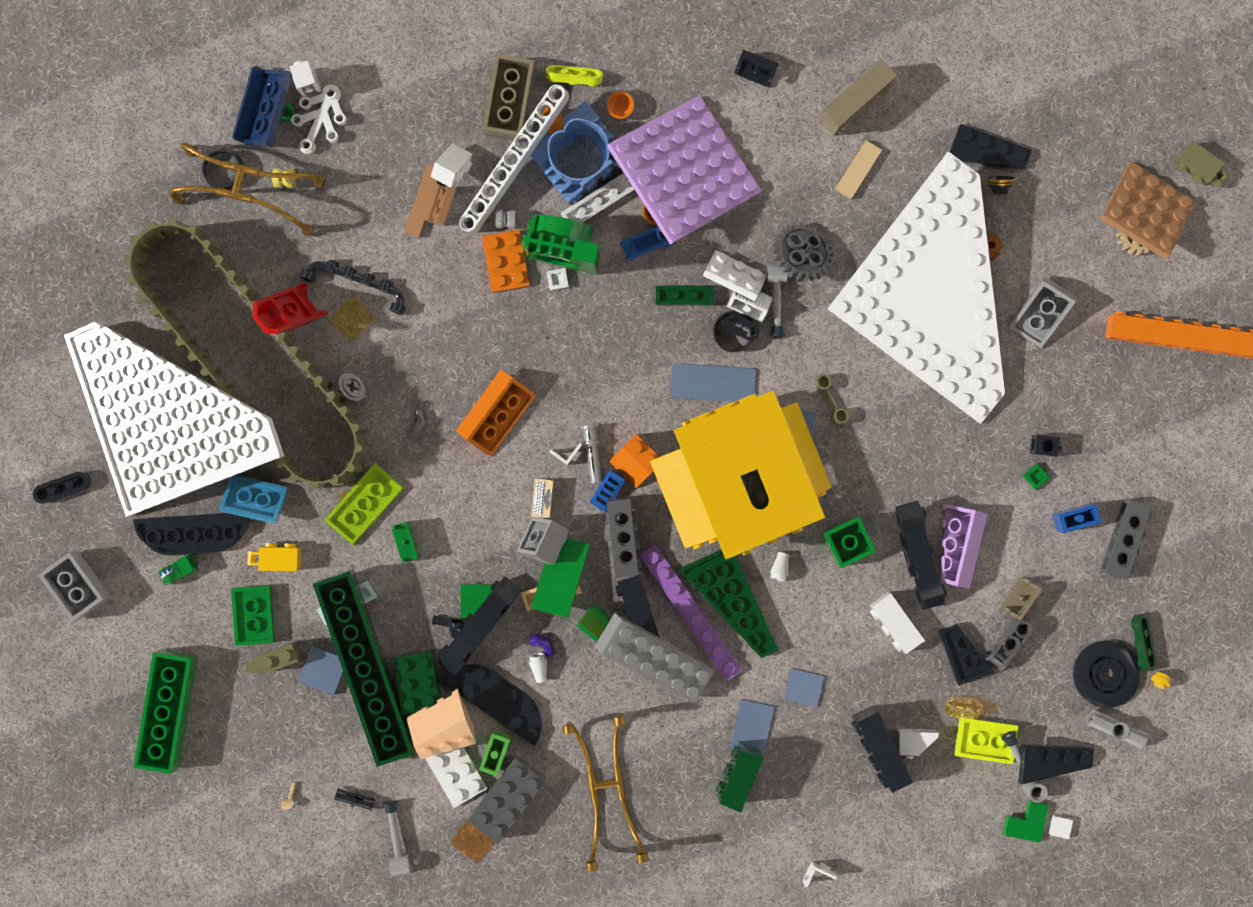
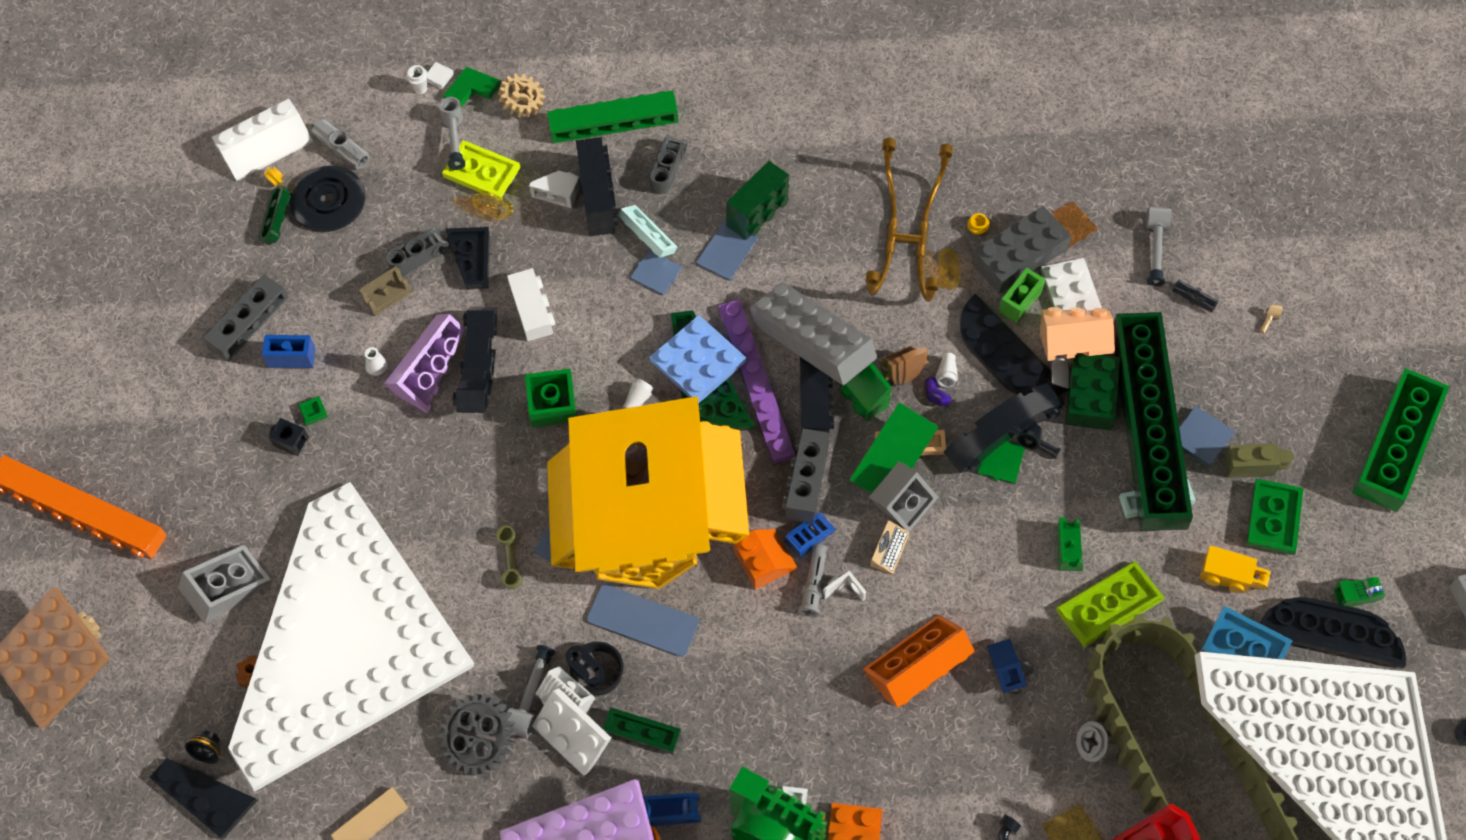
camera: 165 degrees left, 25 degrees down
(429, 426) = (1006, 665): none -> dark blue slope
(446, 687) = (1060, 372): none -> white sticker
(549, 815) = (978, 224): none -> yellow plate
(559, 766) = (943, 269): none -> clear yellow beam
(576, 659) = (903, 364): none -> medium nougat hair
(742, 612) = (698, 359): none -> light blue plate
(822, 868) = (703, 100): white bracket -> none
(824, 722) = (647, 231): none -> light aqua plate
(829, 808) = (673, 153): none -> dark grey piece
(893, 828) = (613, 116): none -> green brick
(974, 820) = (521, 95): none -> tan gear
(998, 529) = (374, 362): none -> white cone
(1049, 761) = (425, 132): black wing -> none
(1077, 813) = (417, 78): none -> white cone
(1186, 712) = (262, 139): none -> white slope

